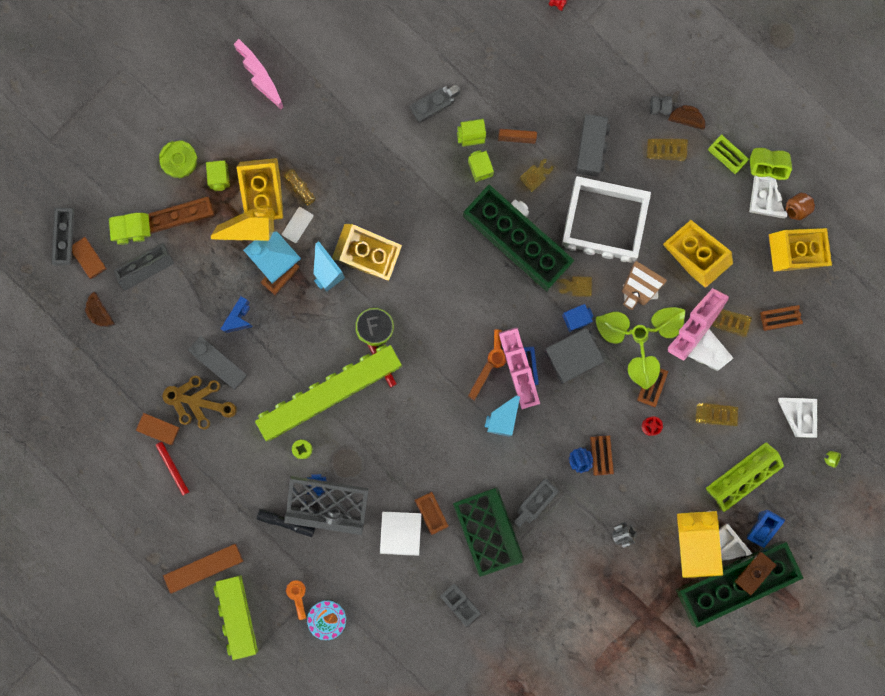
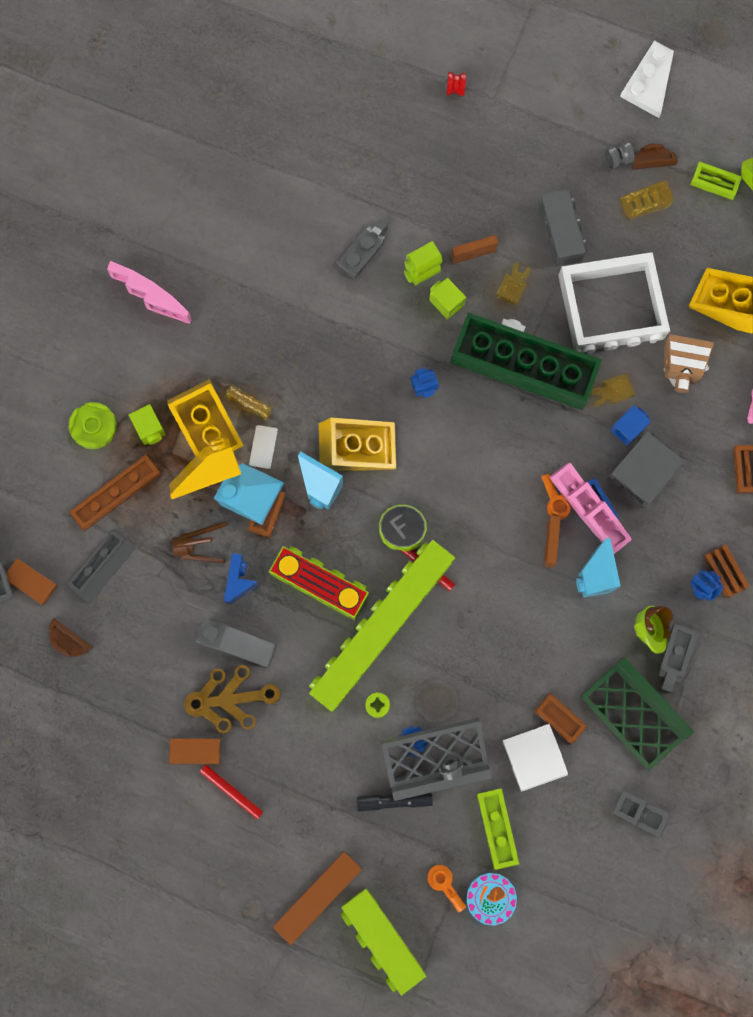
camera: 20 degrees left, 5 degrees down
(129, 227) = (67, 525): lime brick -> none
(210, 276) = (186, 544): none -> reddish brown plant
(295, 343) = (318, 582): none -> brick
(351, 573) = (497, 829): none -> lime plate
(436, 224) = (424, 382): none -> blue gear
(527, 475) = (653, 627): none -> lime piece
(615, 326) = (732, 389): lime plant -> none
(711, 55) = (650, 80): none -> white wing

